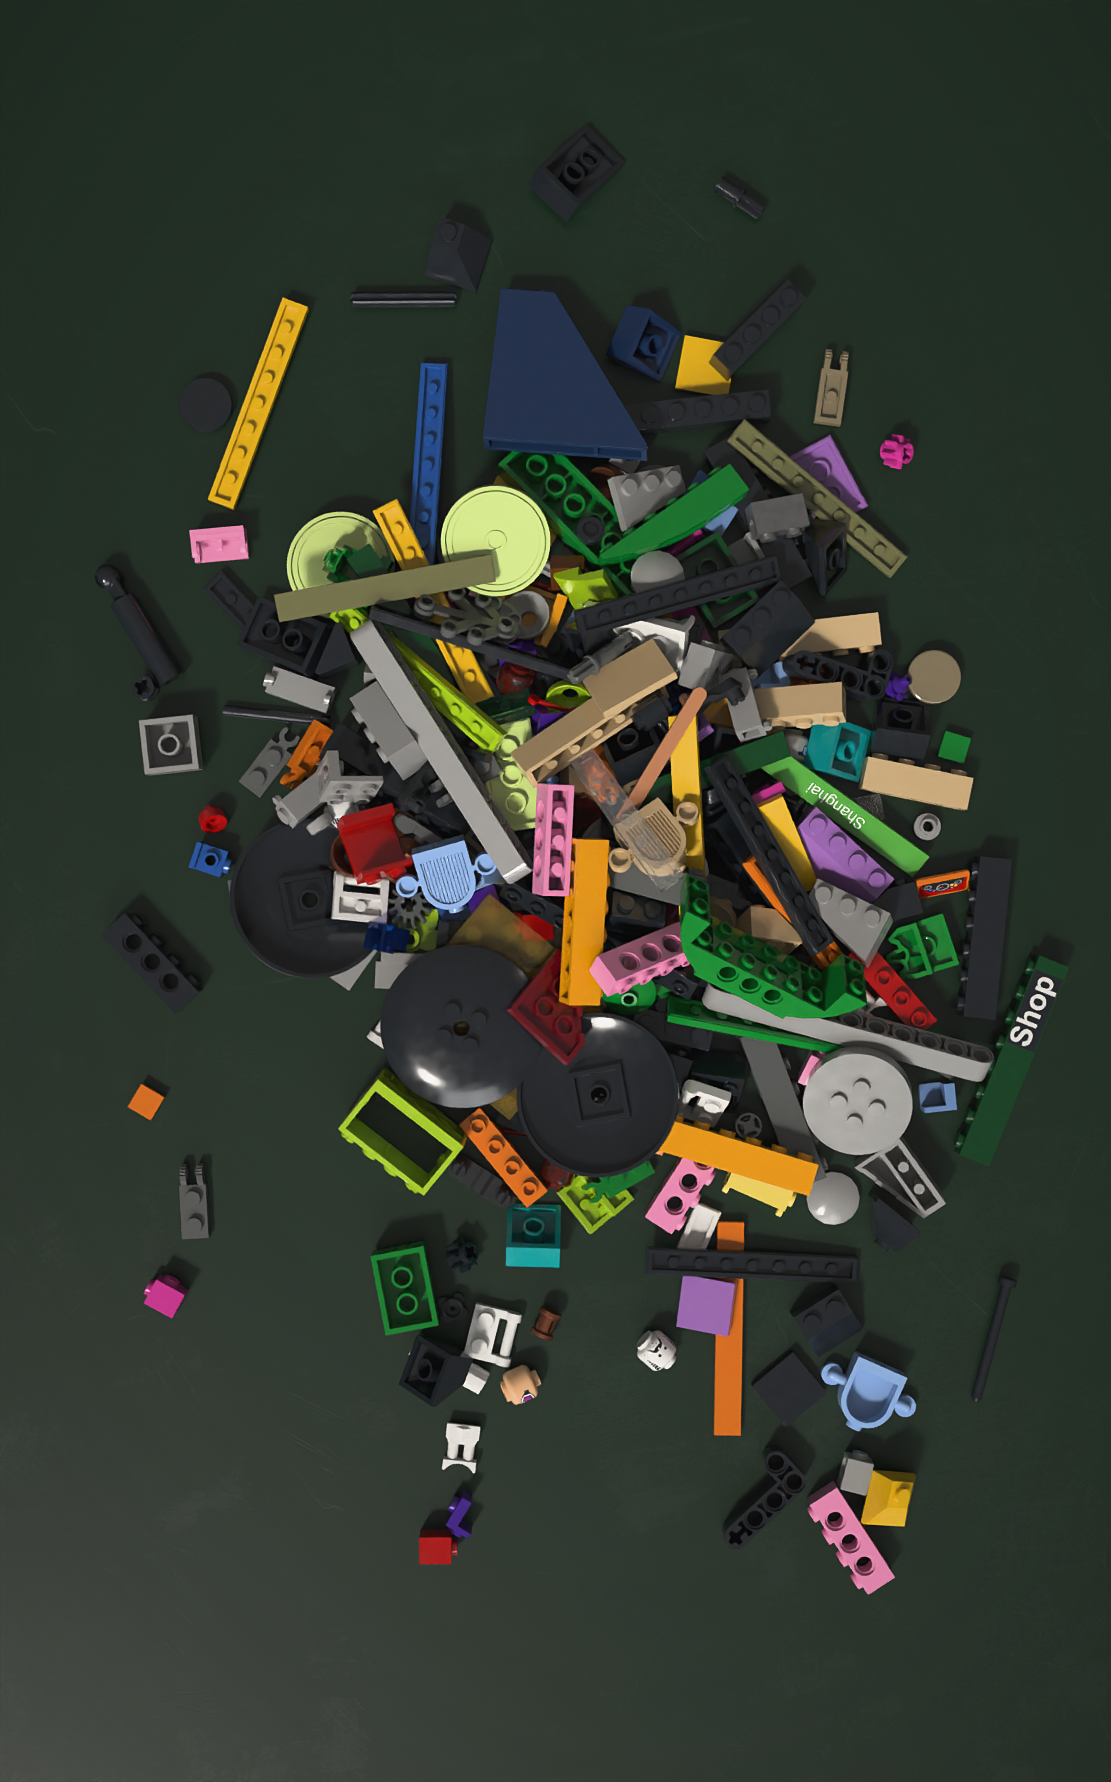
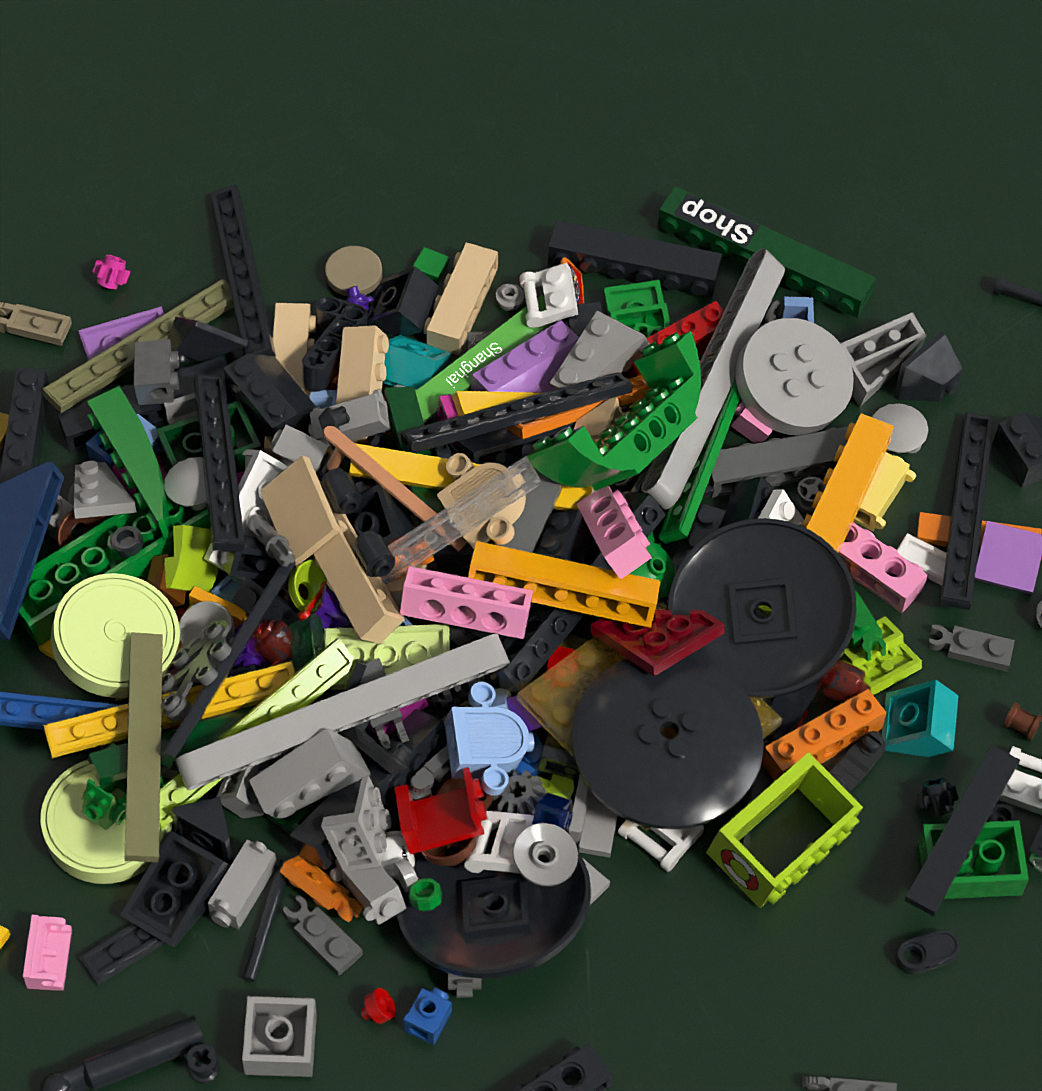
camera: 85 degrees left, 30 degrees down
(302, 843) = (425, 894): none -> green tile
(329, 1260) = (934, 948): none -> black piece
(336, 947) = (548, 841): none -> light grey dish
(420, 1279) = (962, 830): none -> black tile
(587, 752) = (374, 554): none -> black brick
(616, 1278) = (973, 646): none -> dark grey plate
(911, 574) = (242, 272): none -> black tile
(925, 872) = (558, 295): none -> white plate

